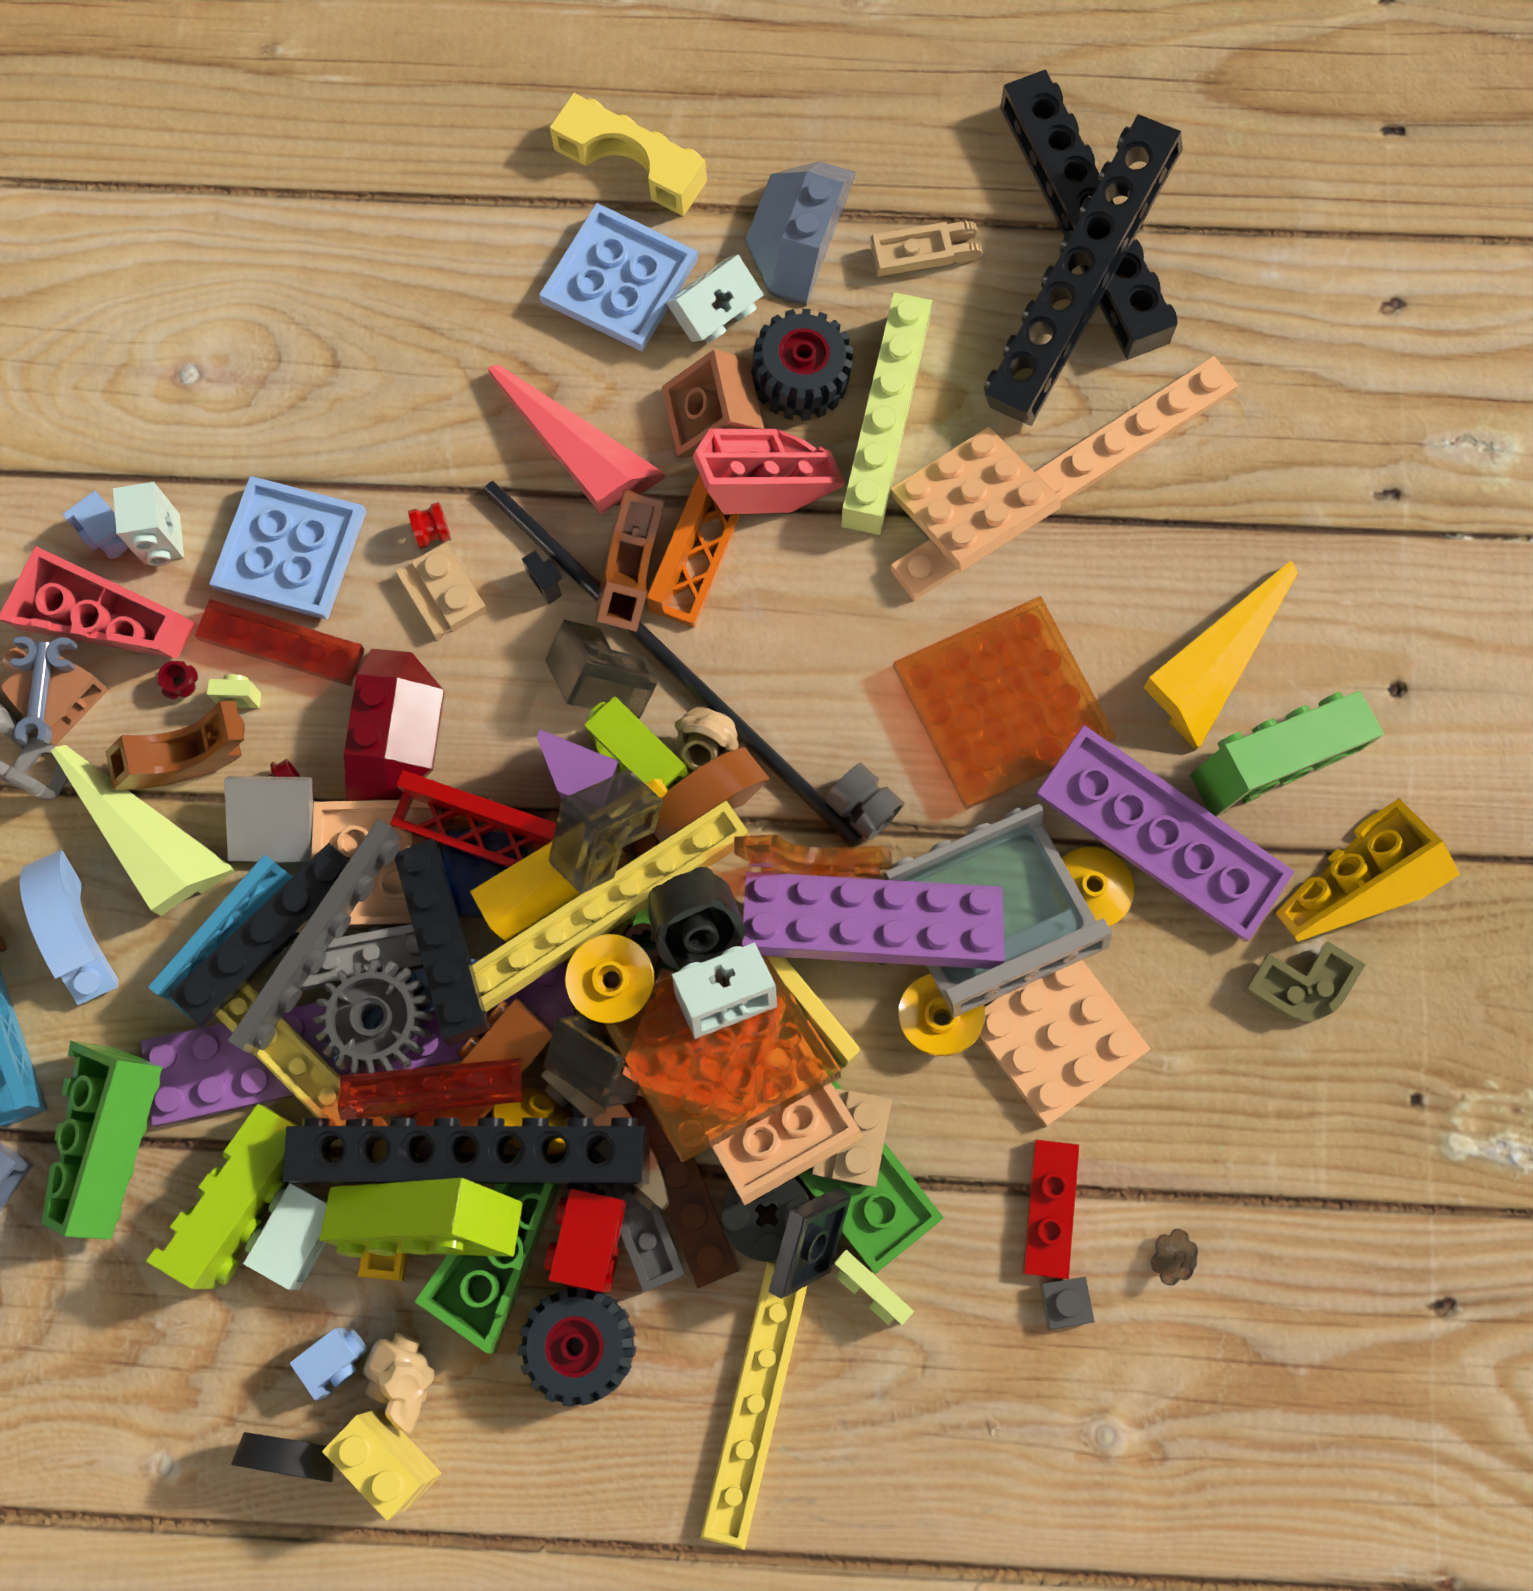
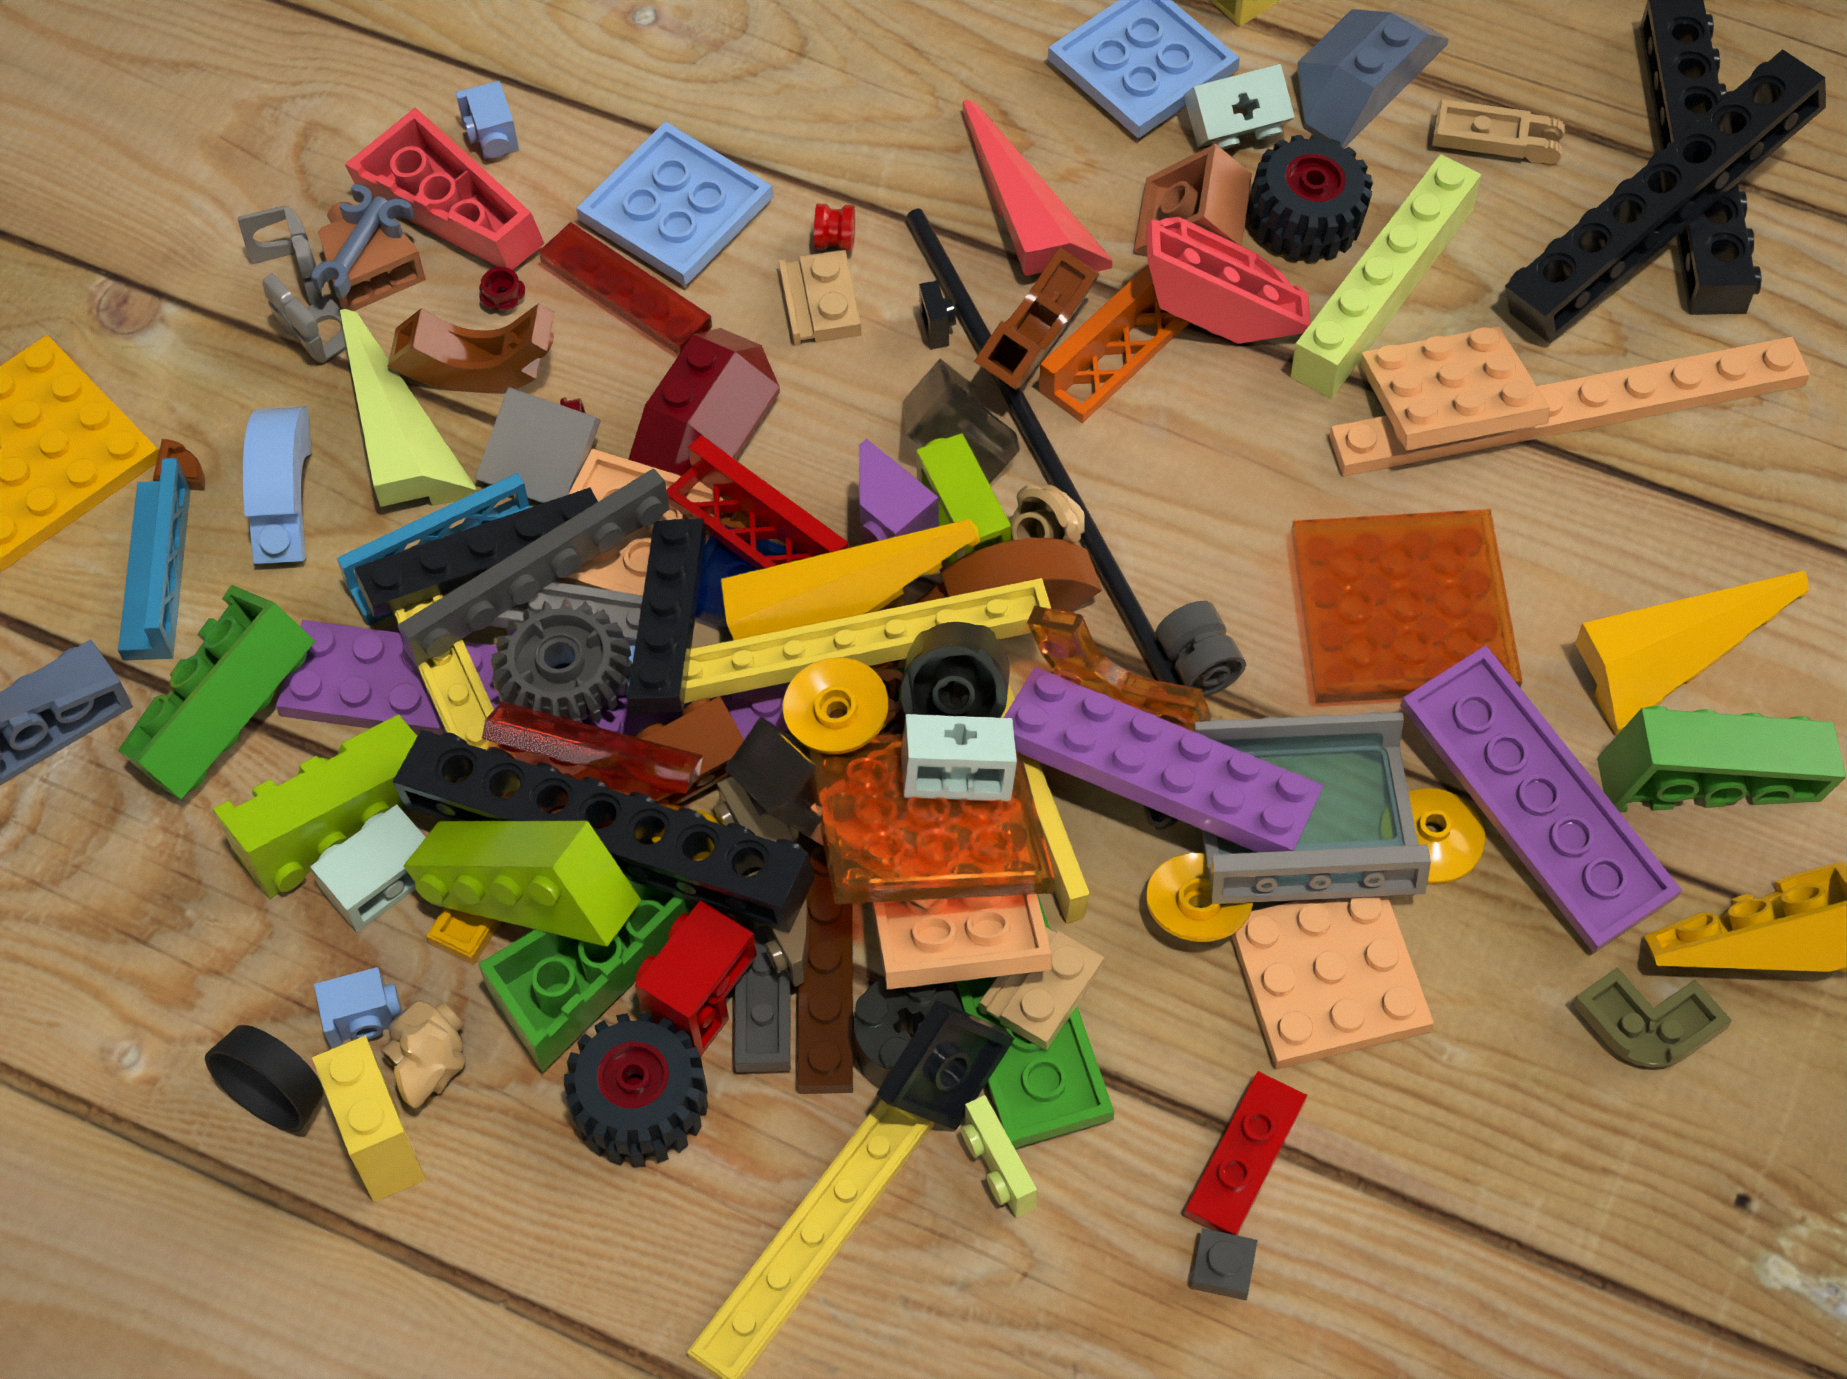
camera: 20 degrees right, 15 degrees down
(148, 523) = (539, 127): light aqua brick -> none
(234, 688) = (566, 320): yellowish green plate -> none
(598, 824) = (884, 541): clear smoke panel -> none
(1174, 1257) = (1375, 1257): clear smoke plant -> none

